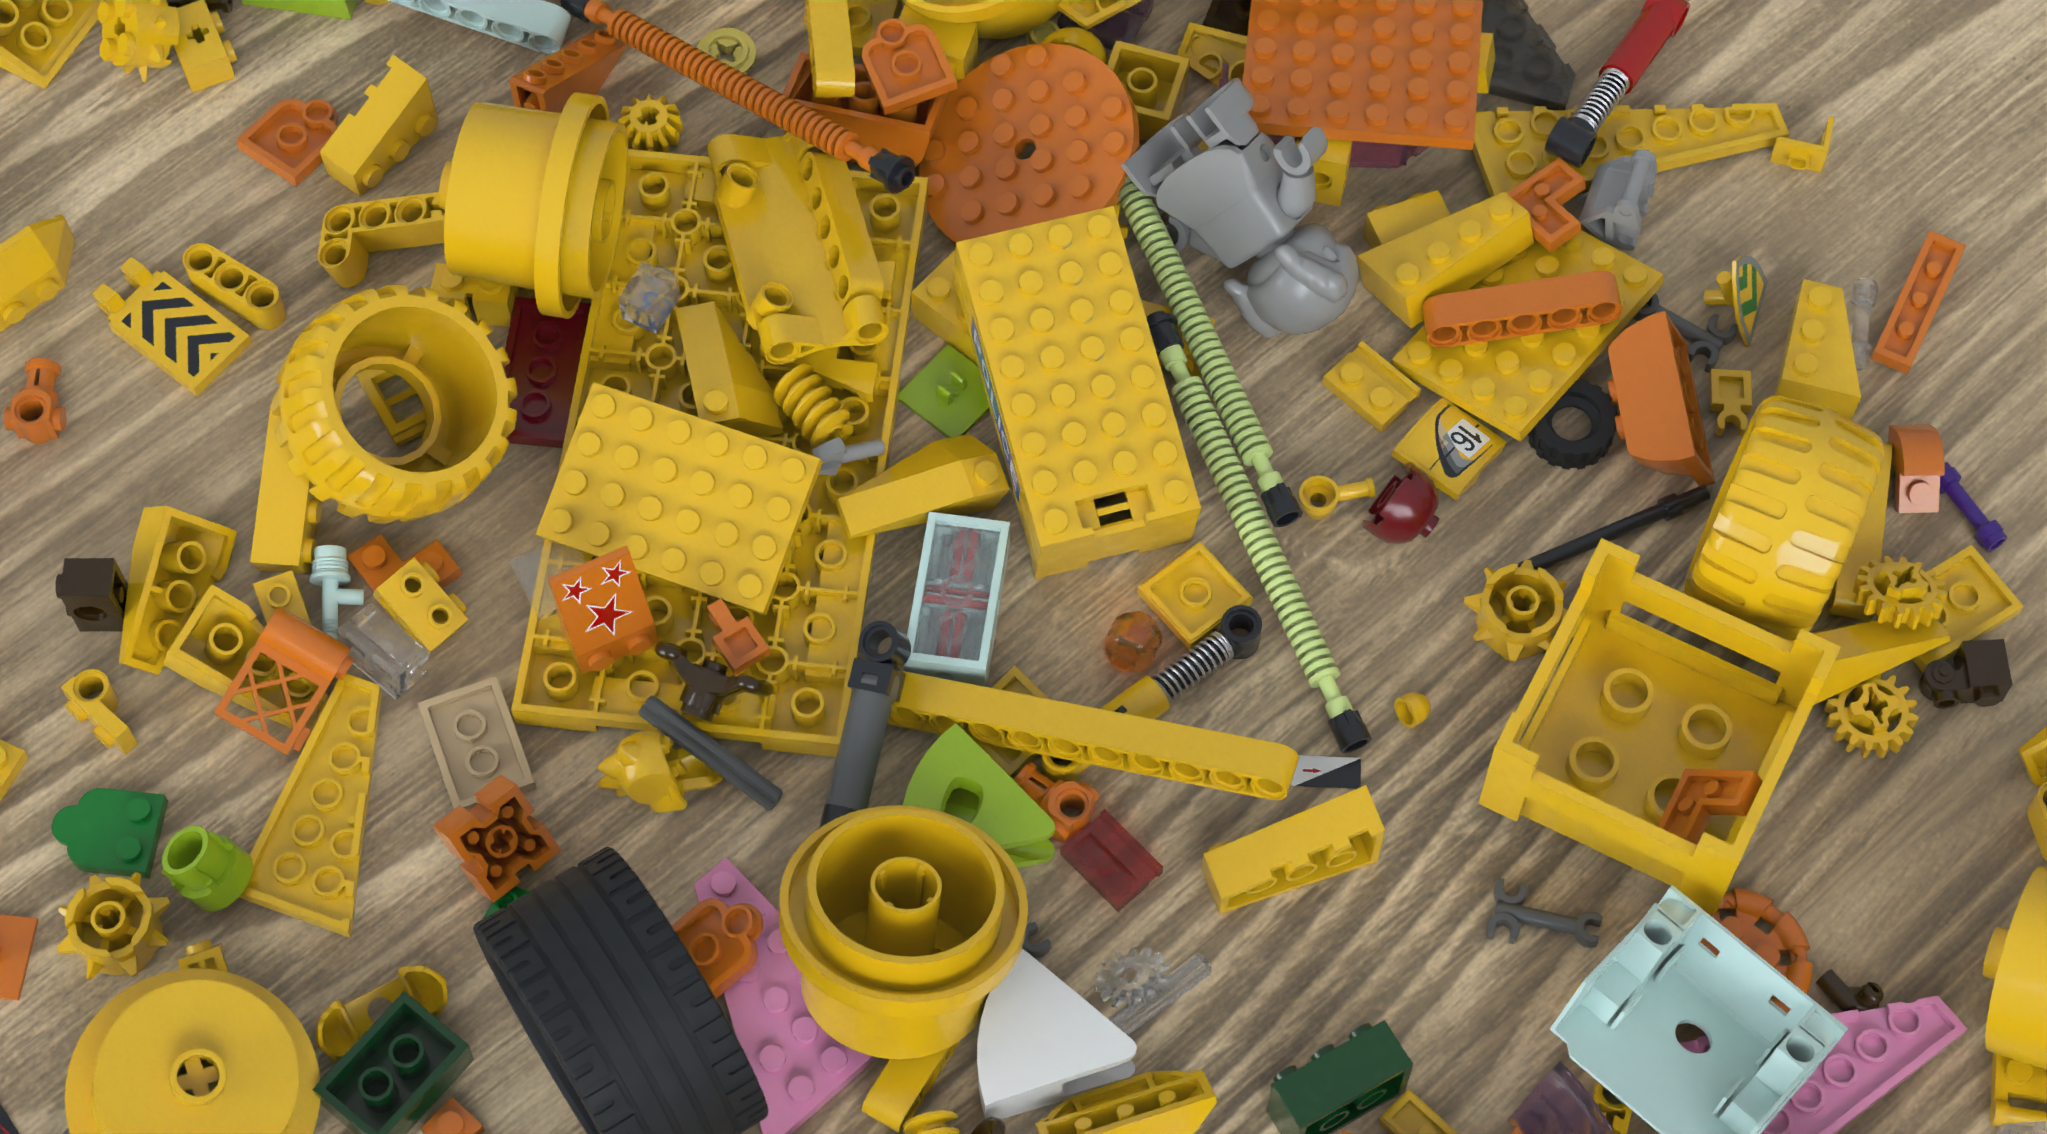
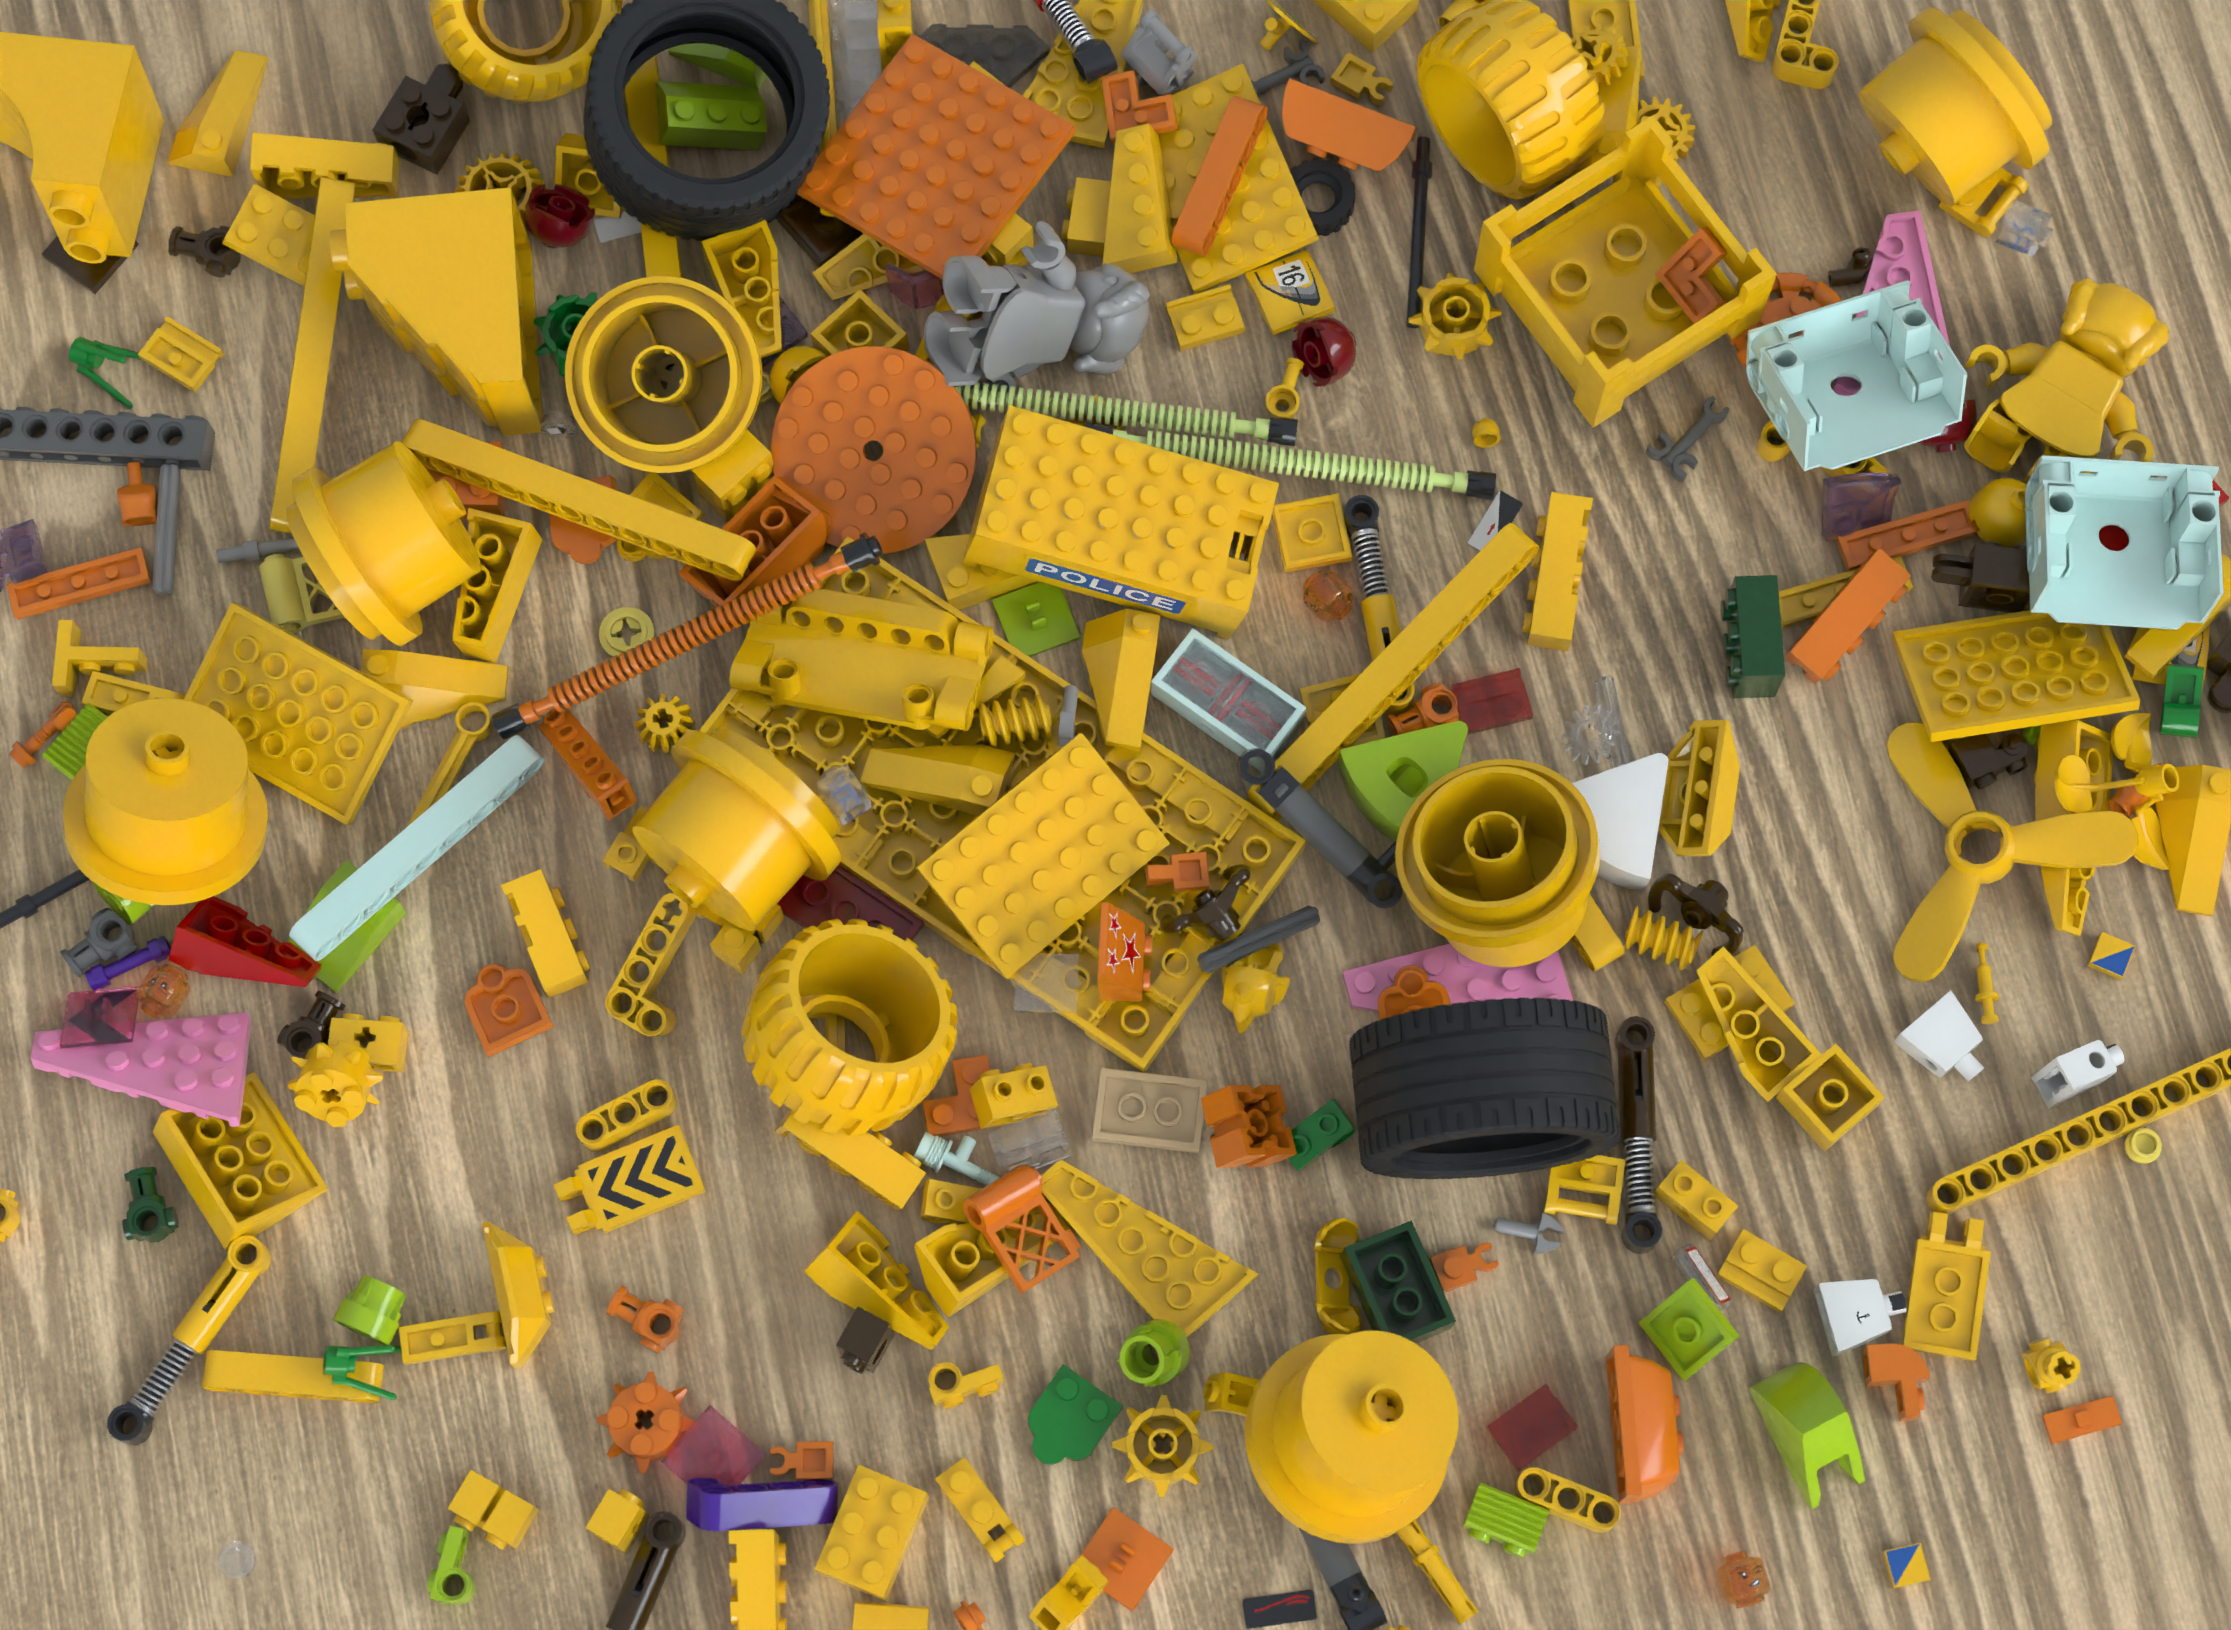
camera: 60 degrees left, 10 degrees up
(906, 65) = (752, 497): orange plate -> none
(1979, 676) = (1665, 47): dark brown brick -> none

